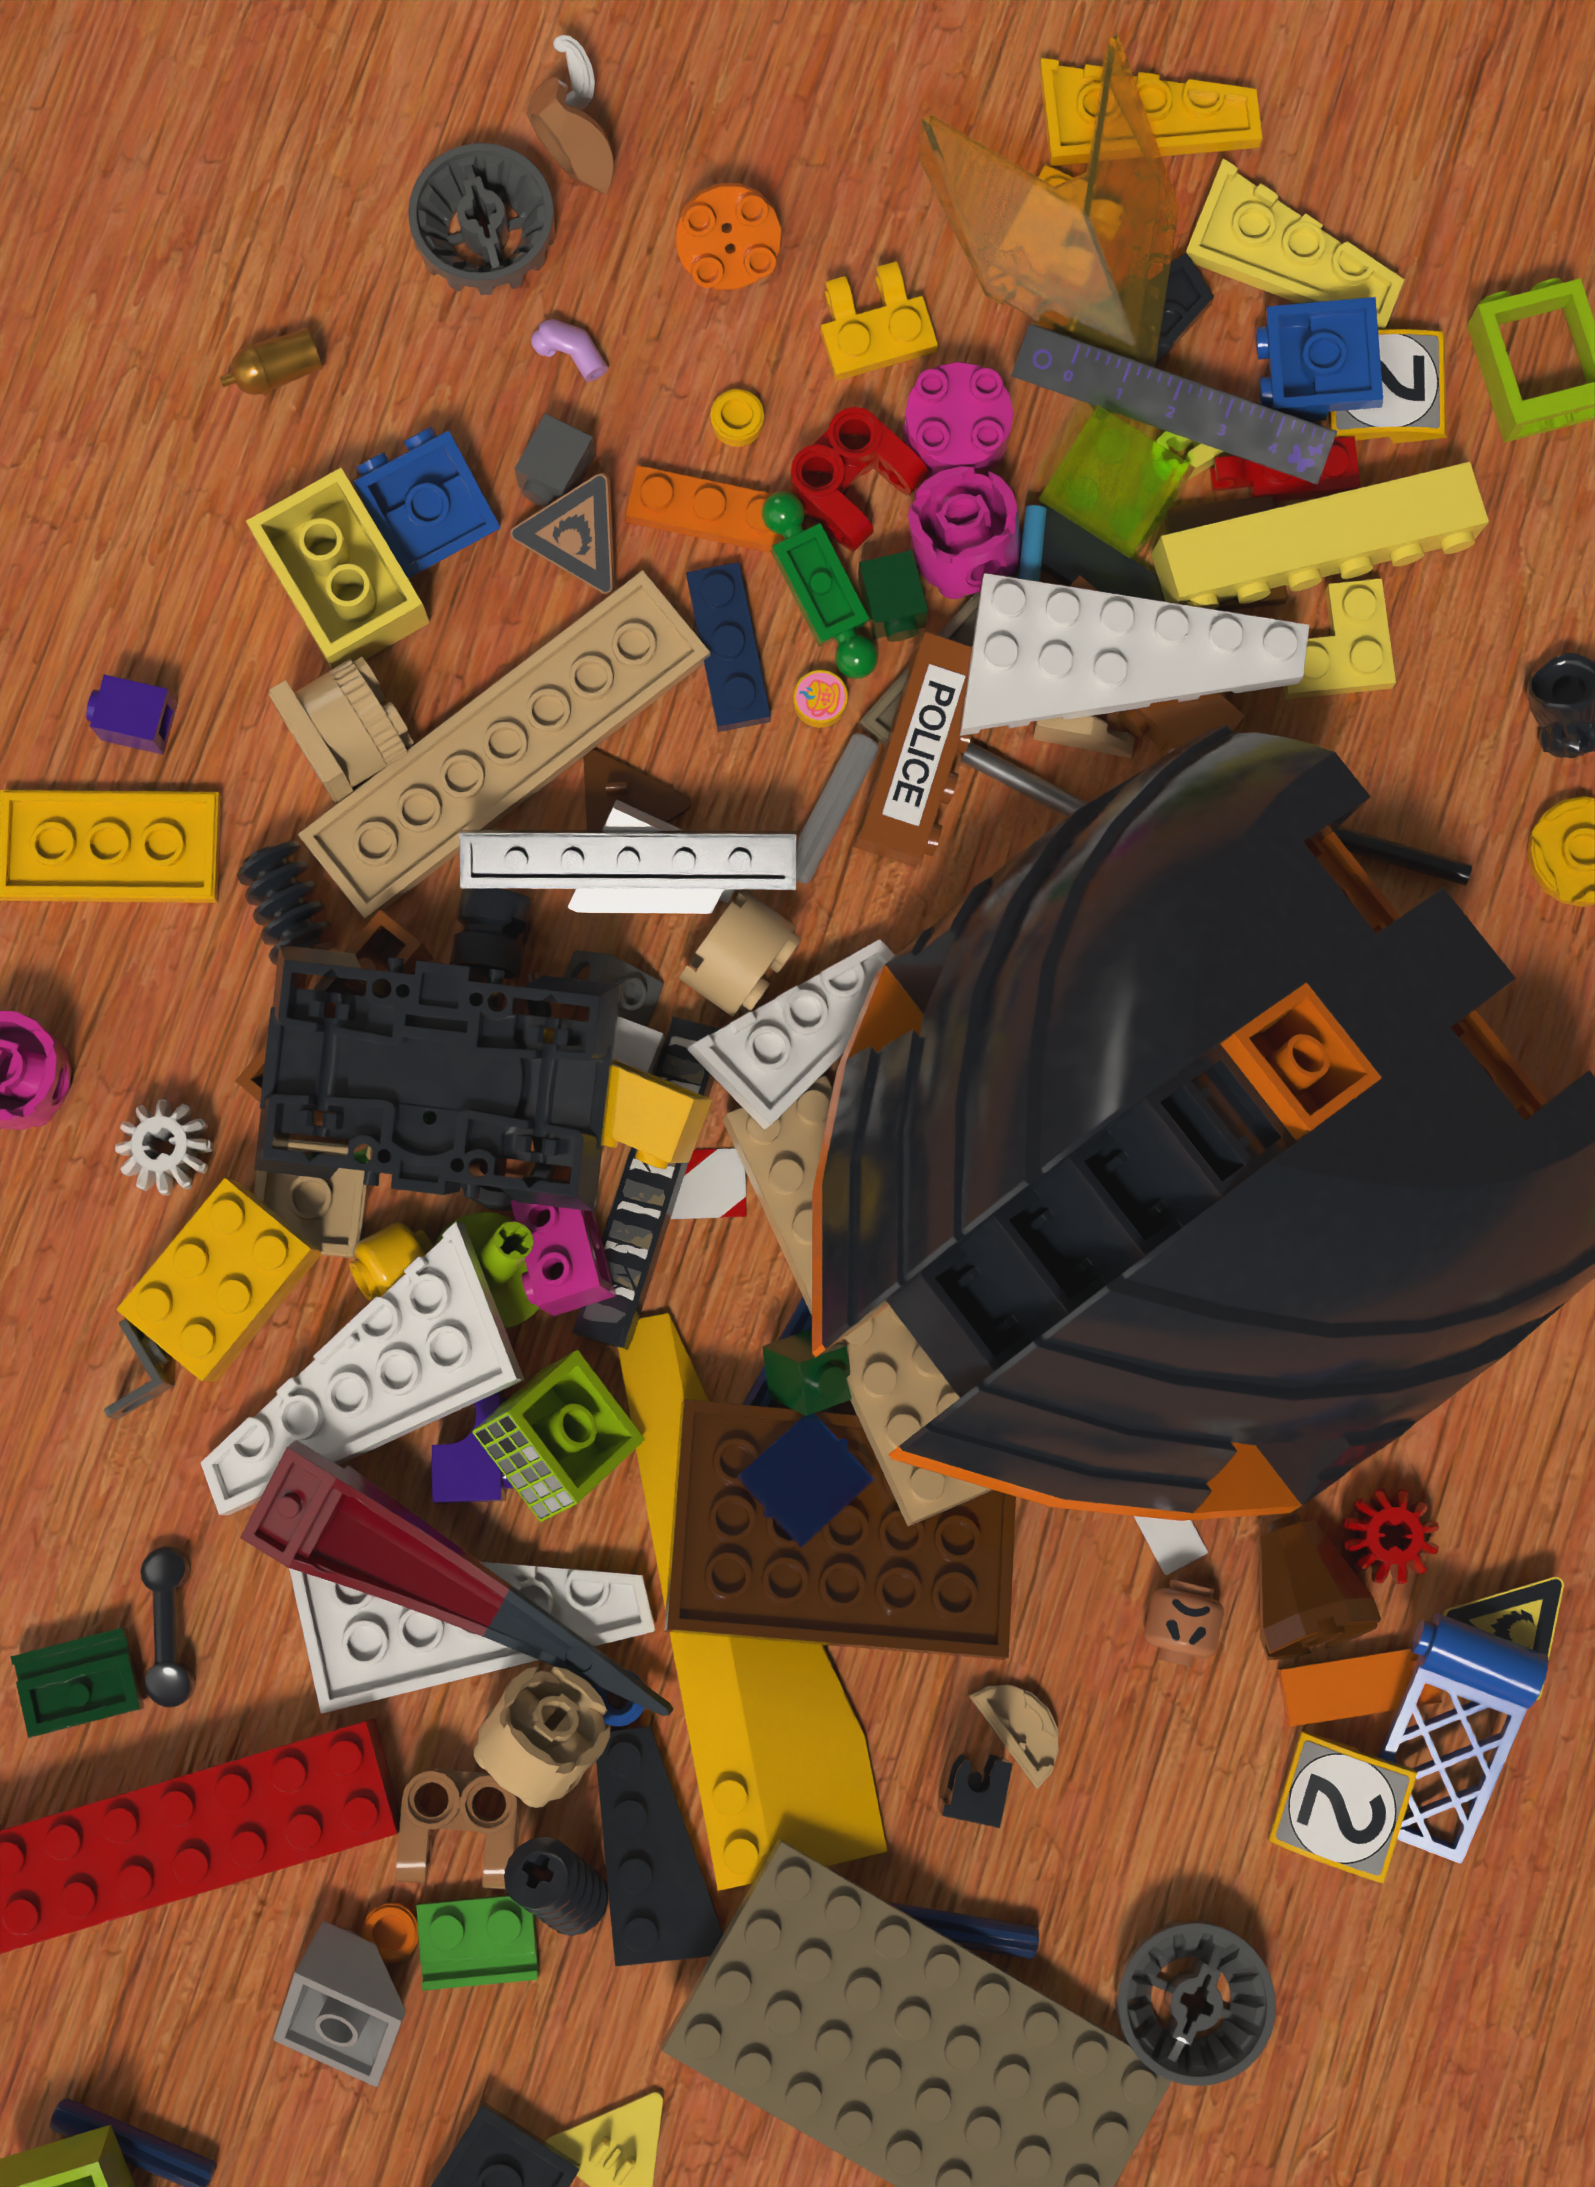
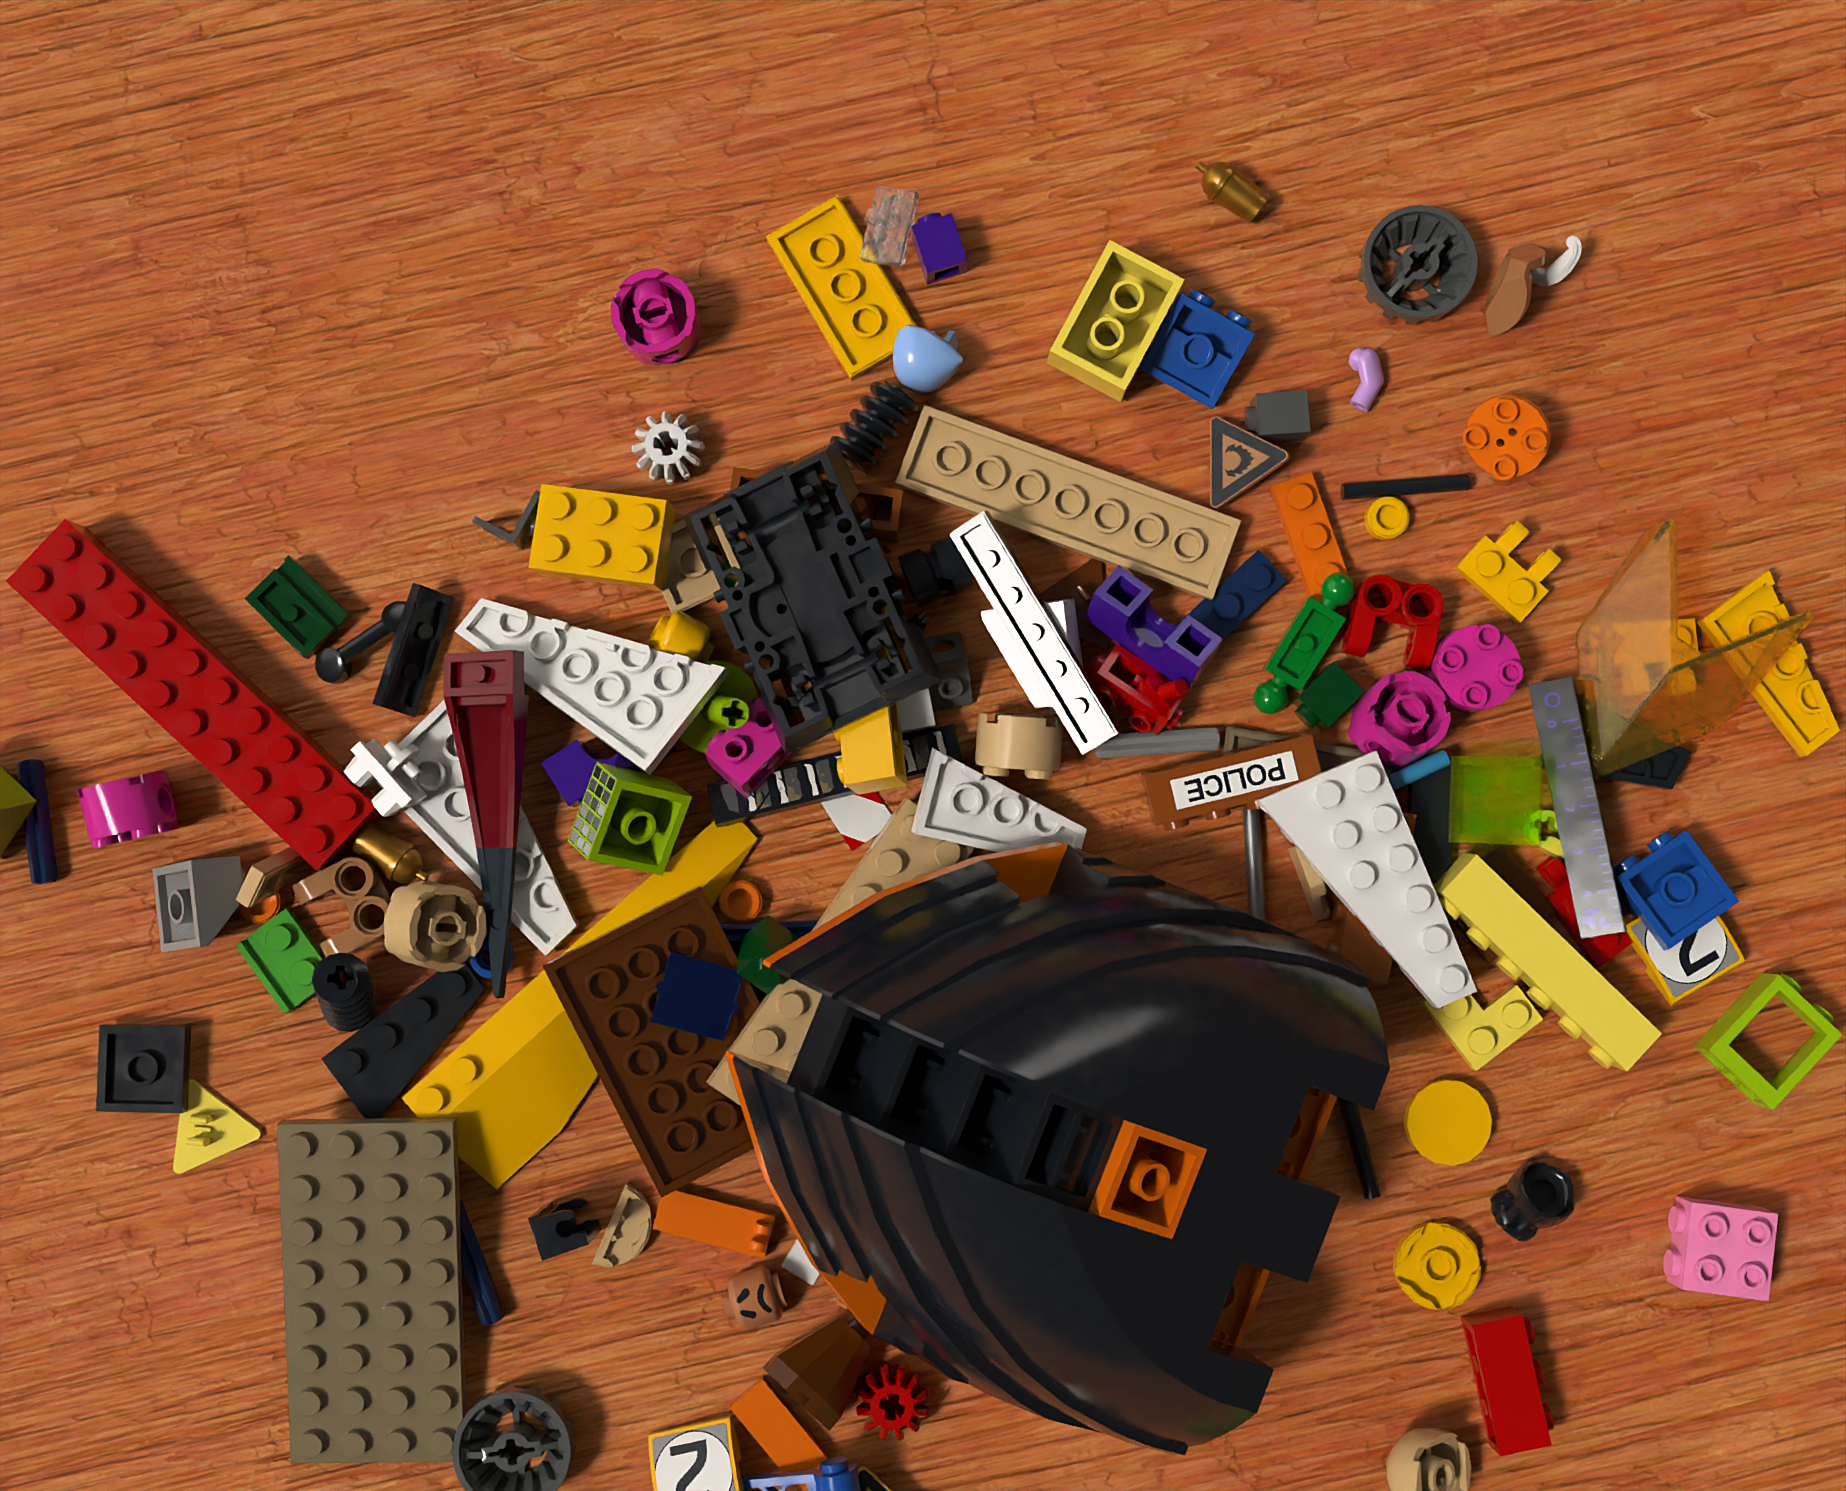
camera: 60 degrees right, 5 degrees up
(74, 752) = (889, 226): none -> clear hips
(183, 2018) = (128, 809): none -> dark pink brick
(211, 1576) = (413, 650): none -> black tile
(247, 802) = (925, 359): none -> light blue piece
(343, 725) = (1011, 389): tan piece -> none
(362, 1682) = (392, 769): none -> white hips
(366, 1897) = (267, 877): none -> tan tile
(429, 1743) = (390, 854): none -> pearl gold piece
(673, 754) = (1125, 614): none -> dark purple arch
(714, 378) = (1405, 486): none -> black bar
(727, 1373) = (741, 901): none -> orange tile
(762, 789) = (1138, 690): none -> red brick
(820, 698) = (1227, 690): tile -> none
(1072, 1619) = (715, 1222): none -> orange hinge
(1275, 249) = (1732, 810): light yellow wing -> none
(1433, 746) = (1448, 1122): none -> yellow tile

